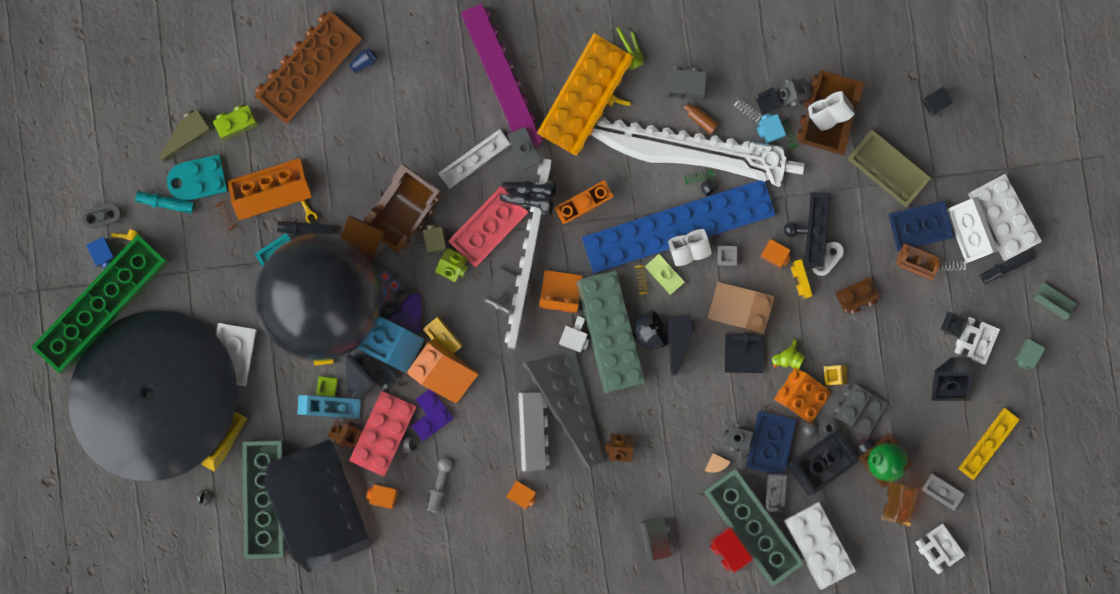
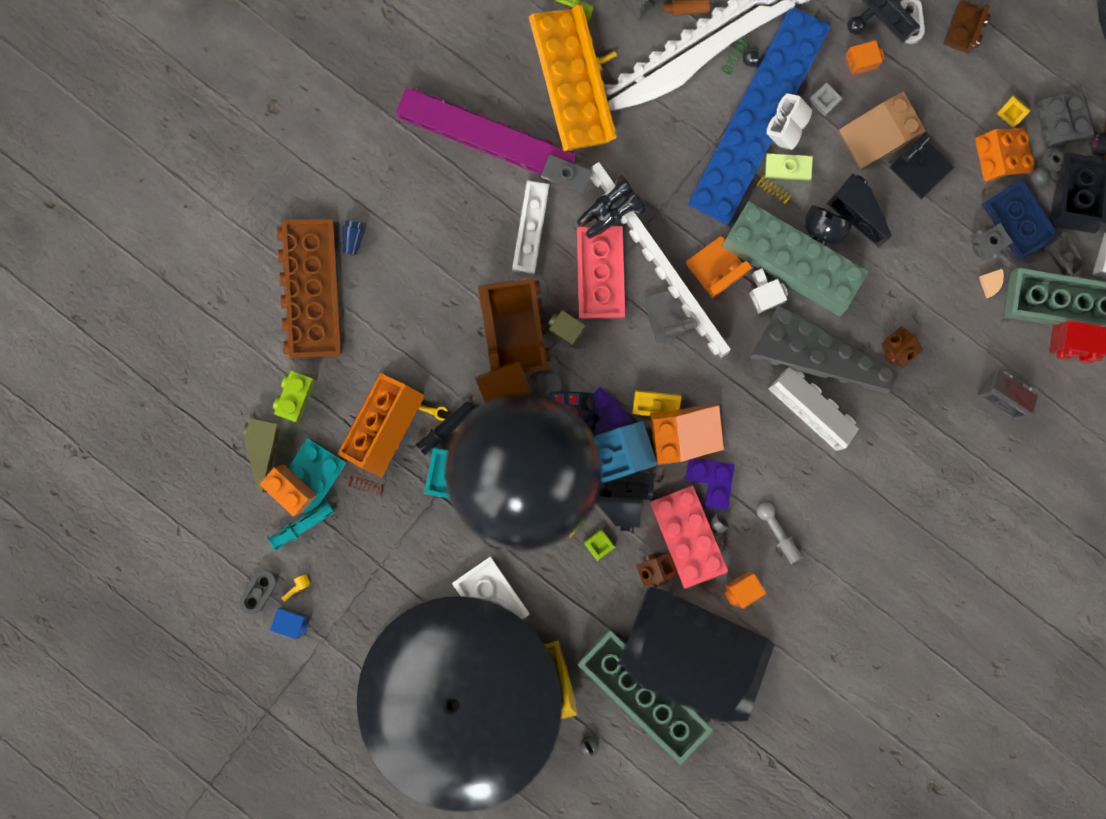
camera: 50 degrees left, 0 degrees up
(99, 304) = (333, 671): green brick -> none
(177, 174) = (288, 489): none -> orange brick
(328, 406) = (618, 560): medium azure slope -> none
(452, 265) = (603, 334): lime brick -> none
(522, 495) = (858, 471): orange brick -> none
(584, 202) = (662, 170): orange slope -> none
(789, 357) = (963, 132): lime animal -> none
(803, 287) = (912, 59): yellow plate -> none

